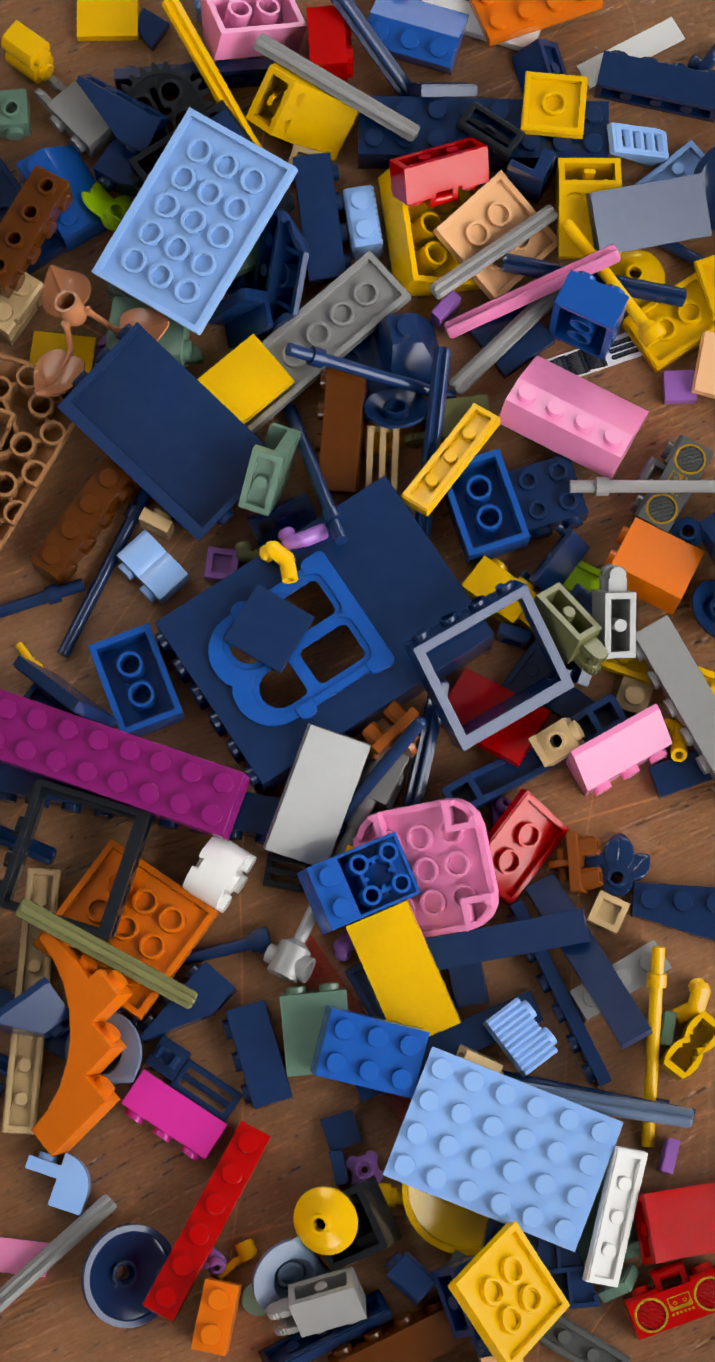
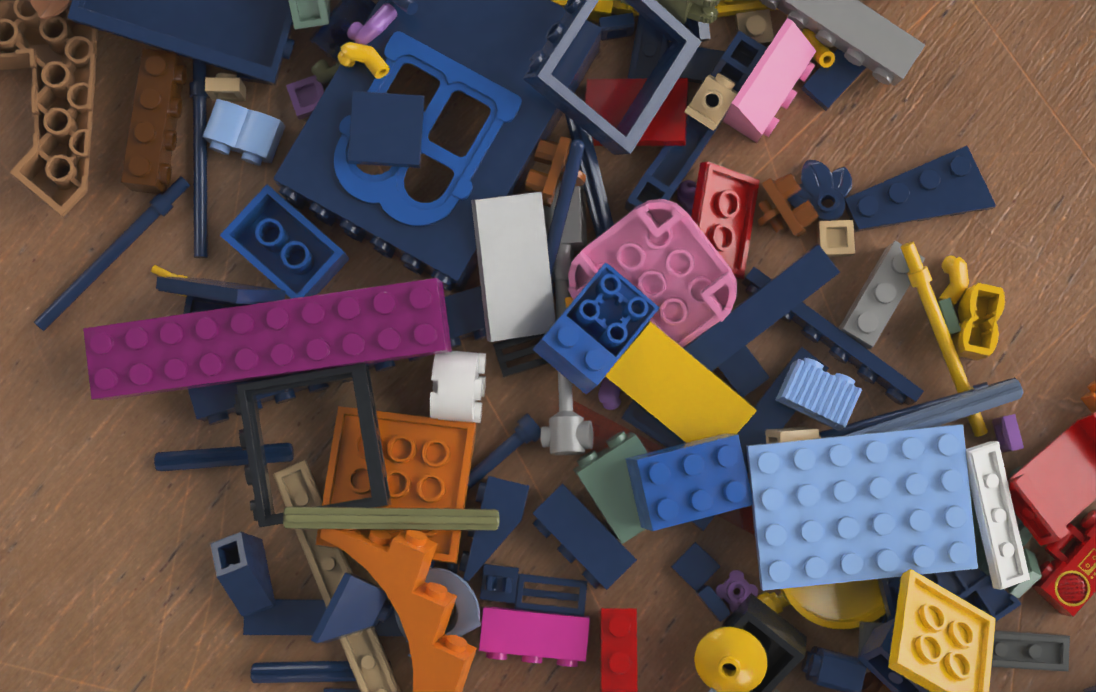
camera: 30 degrees left, 5 degrees up
(593, 969) = (857, 296): dark blue tile -> none

